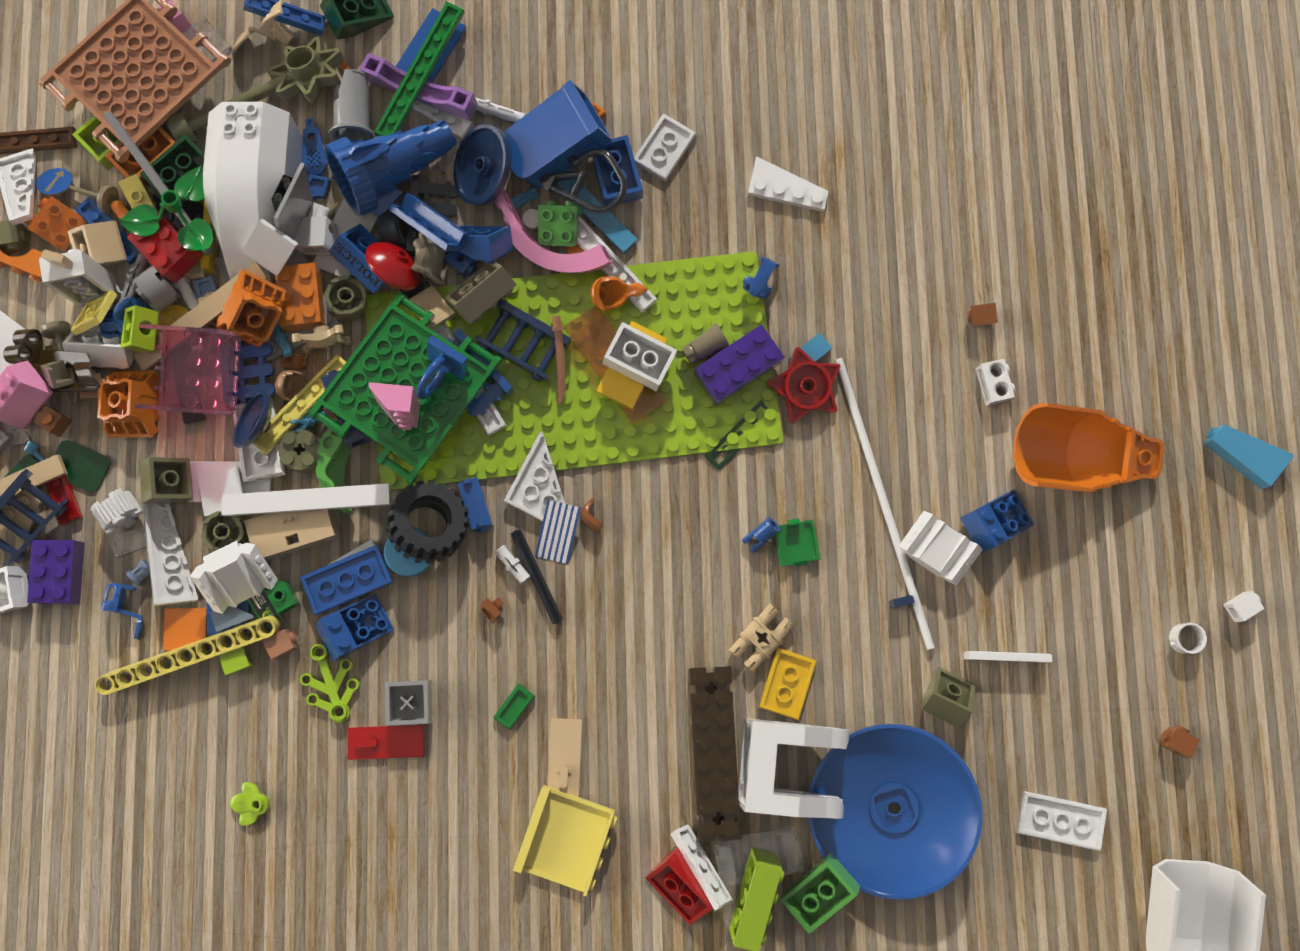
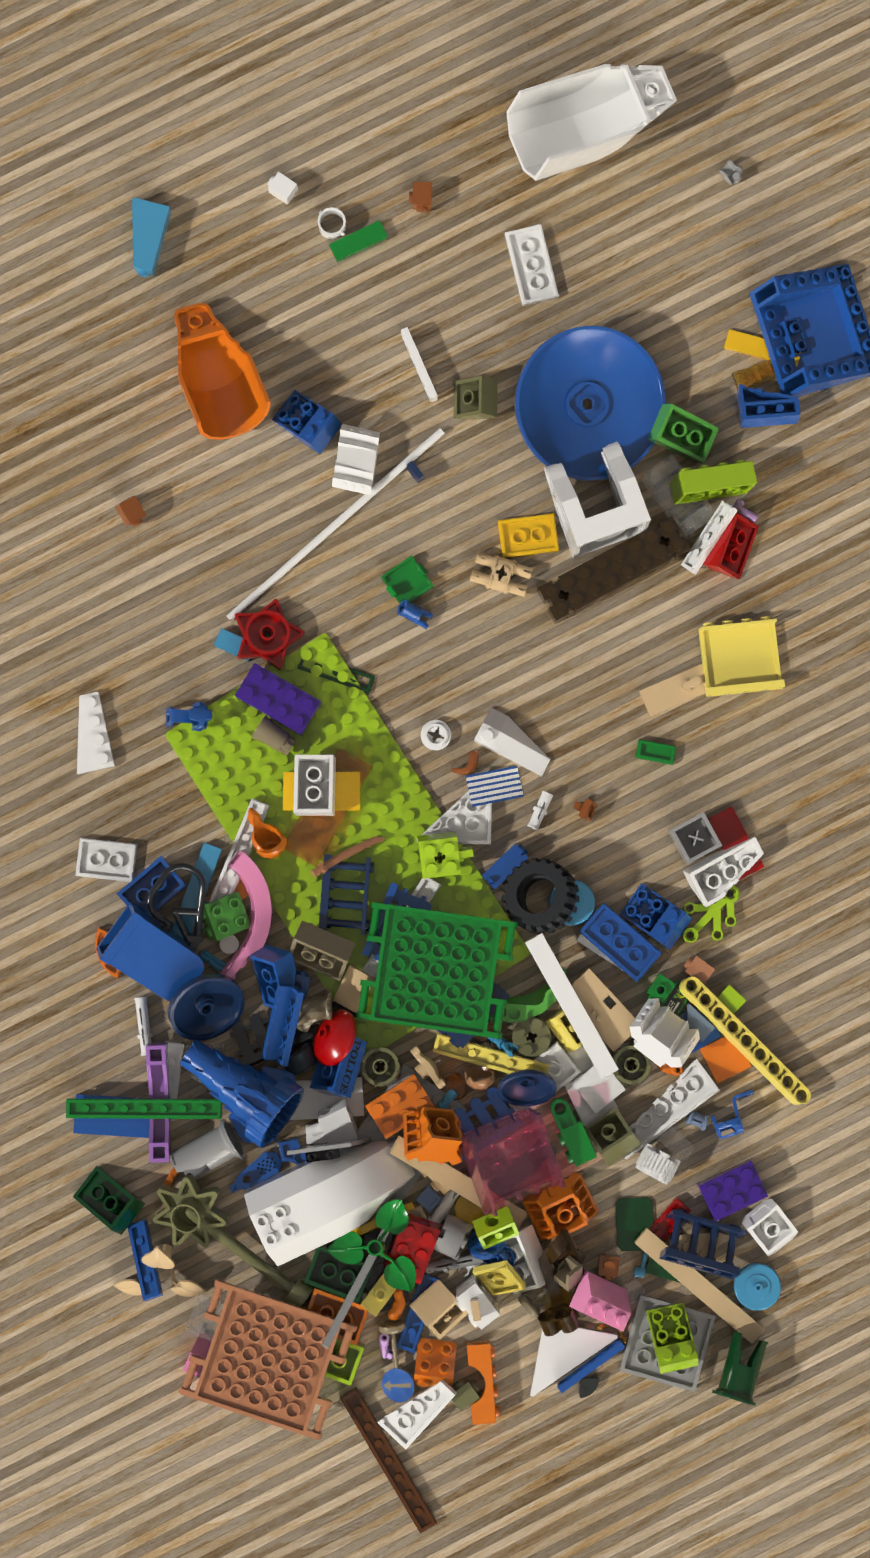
camera: 110 degrees left, 5 degrees up
(91, 185) = (383, 1344): none -> lavender arm
(188, 443) = (572, 1134): none -> green brick
(247, 804) = (840, 931): lime plate -> none
(269, 247) = (374, 1144): white tile -> none
(290, 482) = (564, 1031): none -> light yellow brick
(363, 713) = (718, 873): none -> white wedge
(399, 403) = (459, 959): bright pink slope -> none
(445, 360) = (401, 943): blue tile -> none
(515, 446) = (451, 856): none -> lime hinge
(536, 576) = (540, 785): black axle -> none
(596, 566) = (505, 738): none -> white wedge
(634, 490) = (432, 726): none -> white gear
(709, 917) = (751, 516): none -> lavender arm
(989, 382) = (190, 479): white brick -> none
(1158, 656) = (358, 241): none -> green tile

